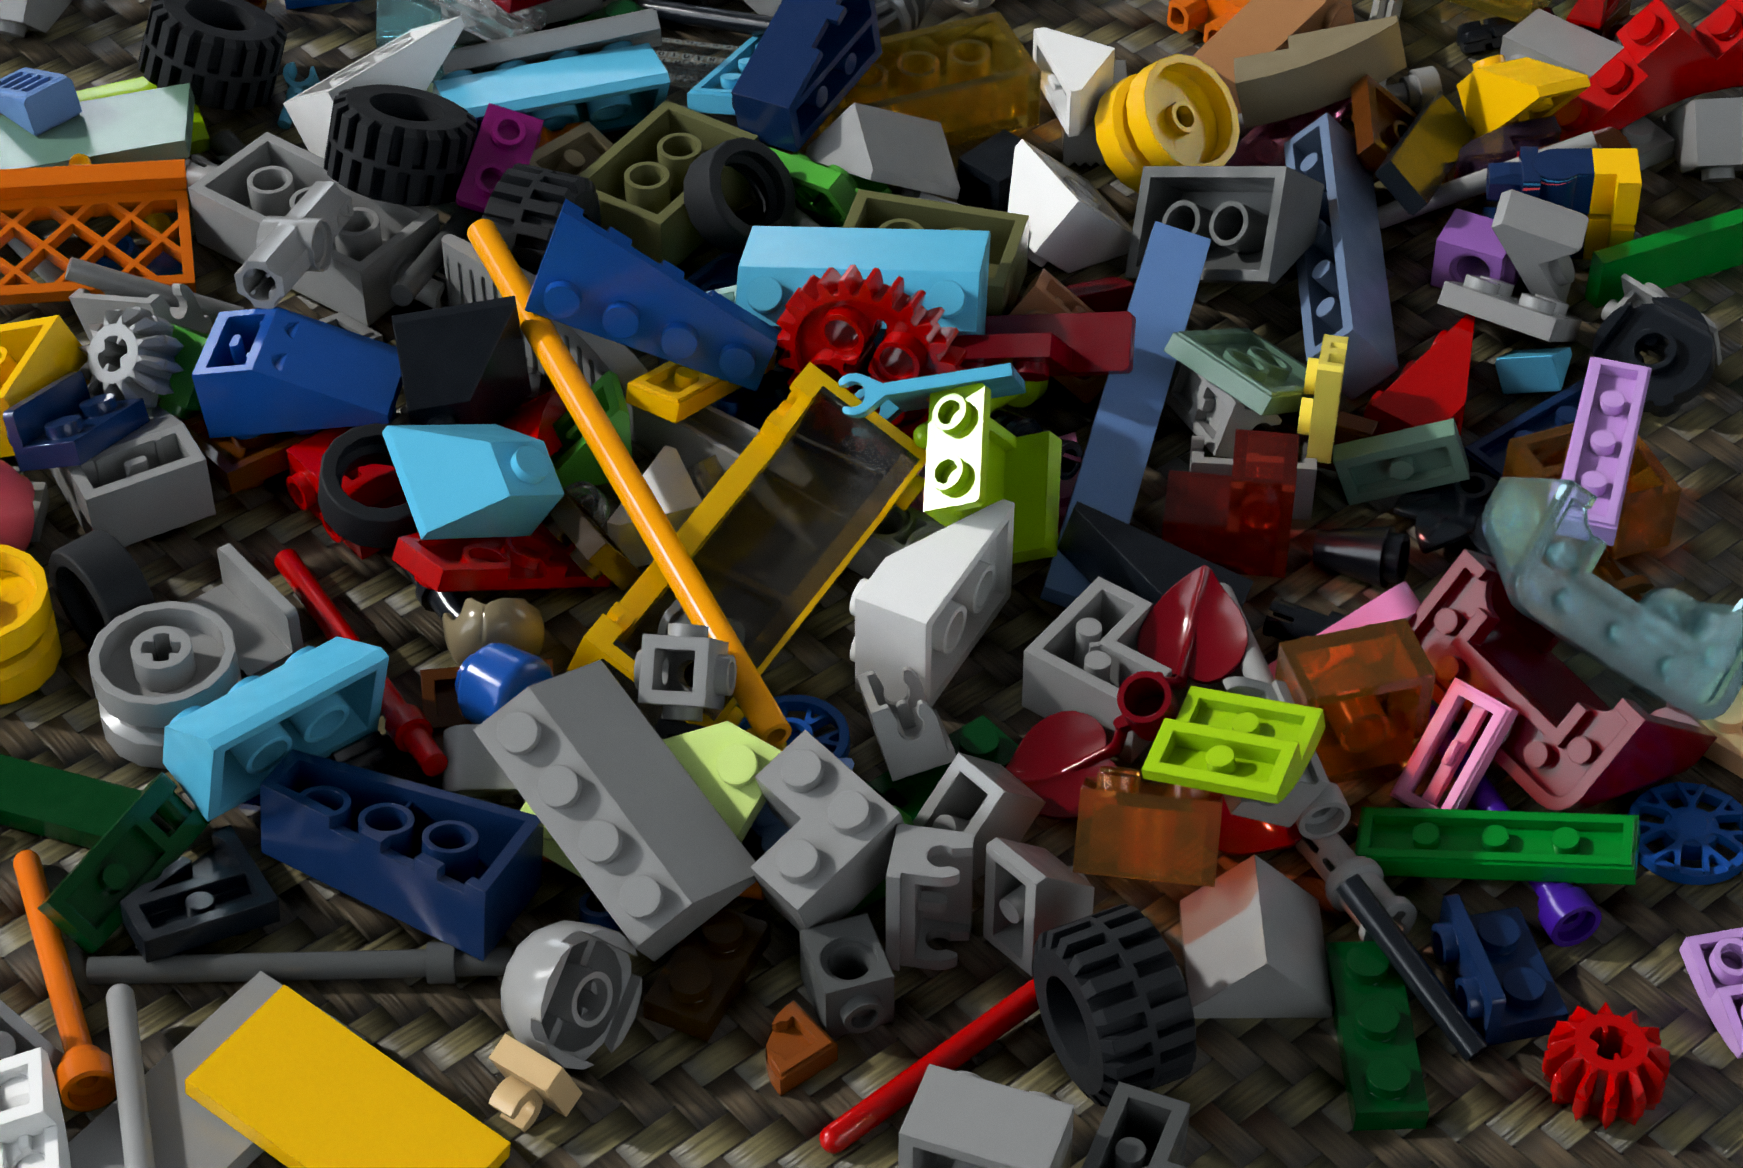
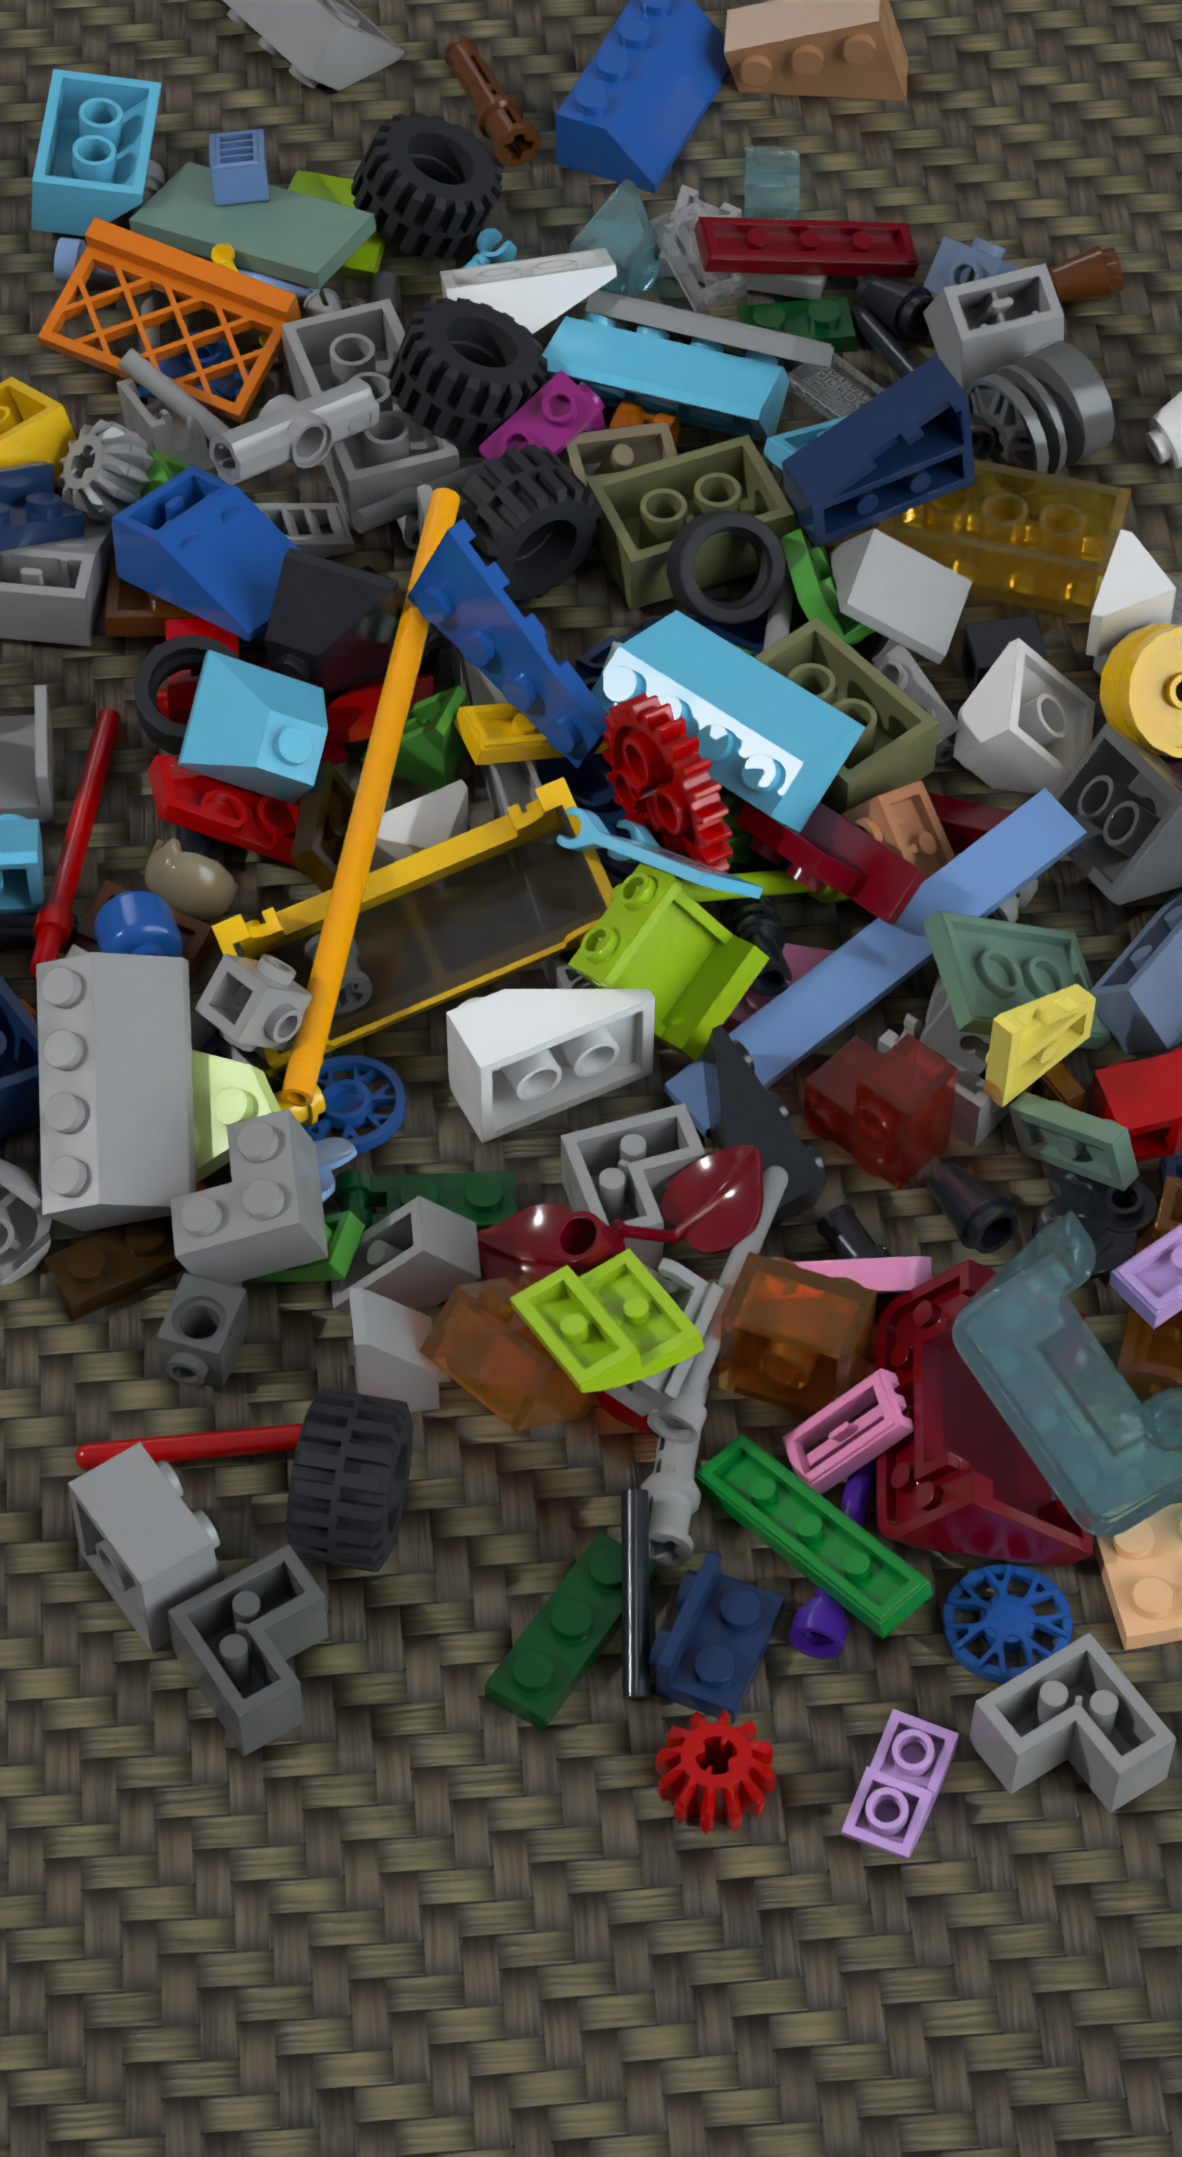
camera: 35 degrees right, 10 degrees up
(797, 1049) = (124, 1367): dark orange tile -> none
(906, 730) = (418, 1146): light grey hinge -> none
(928, 895) = (300, 1298): light grey hinge -> none
(1254, 947) = (544, 1501): light grey slope -> none

